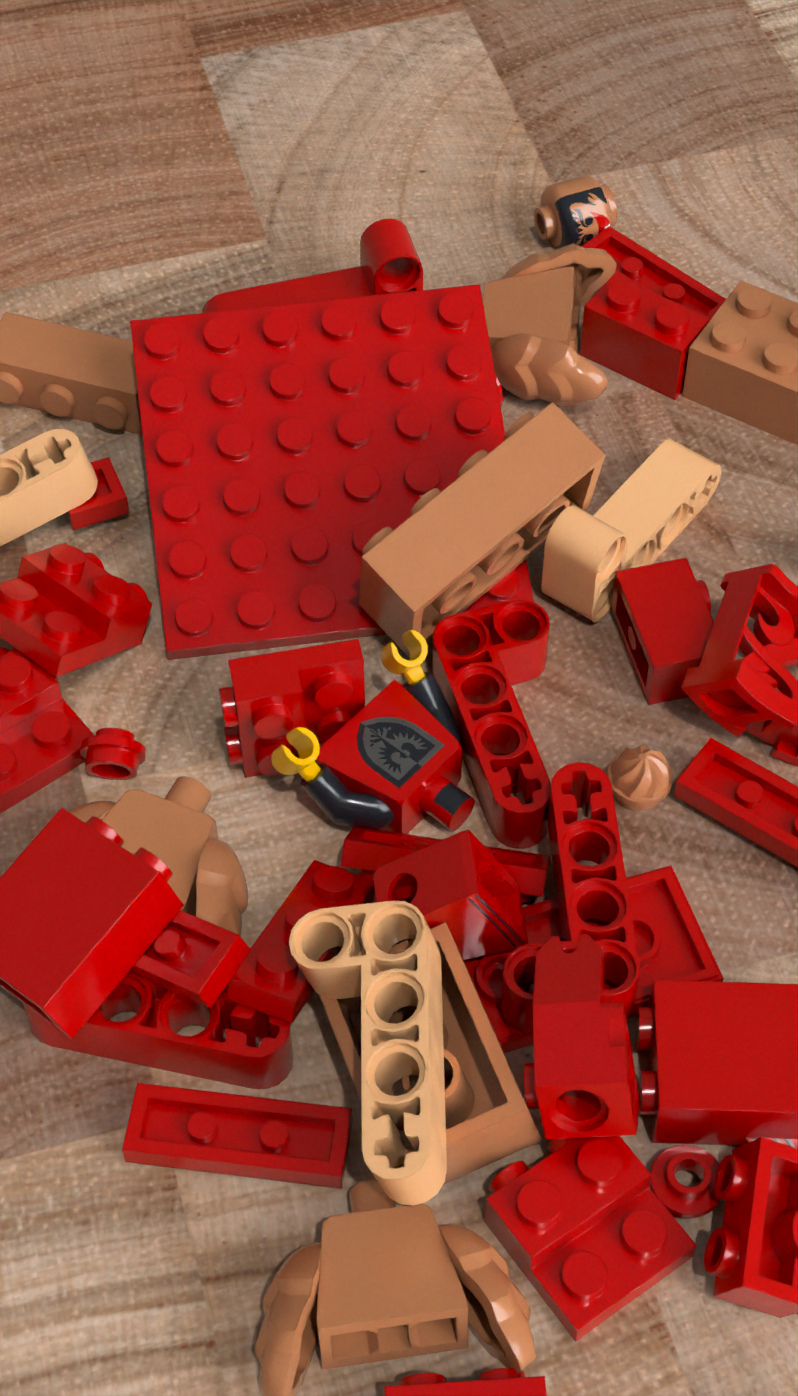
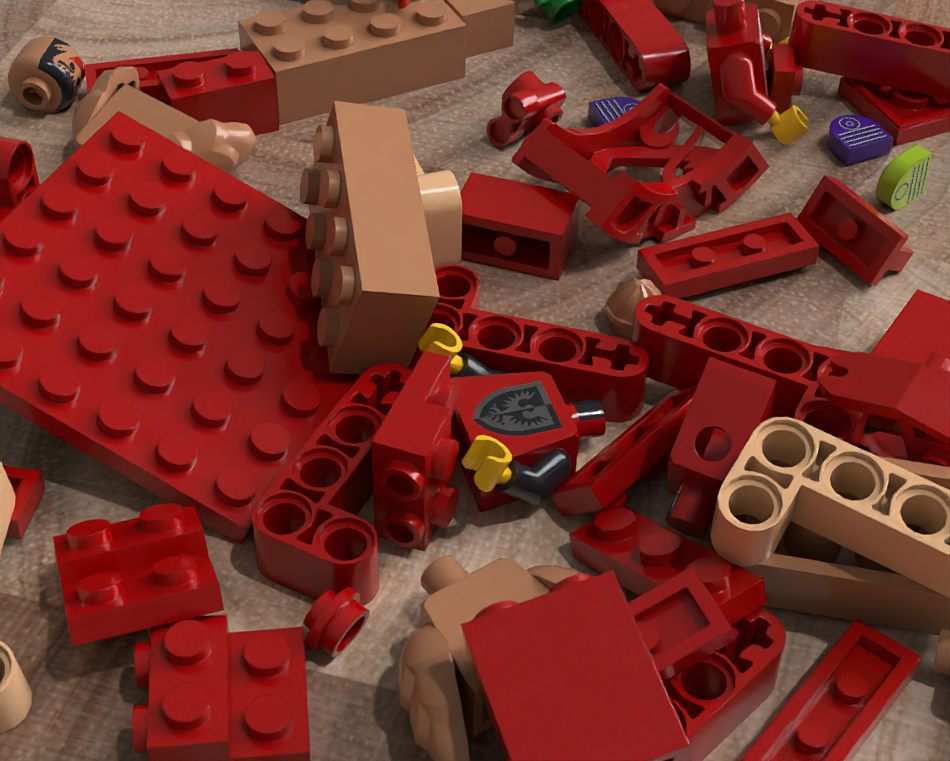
camera: 60 degrees left, 10 degrees down
(185, 673) = (308, 516): none -> red beam

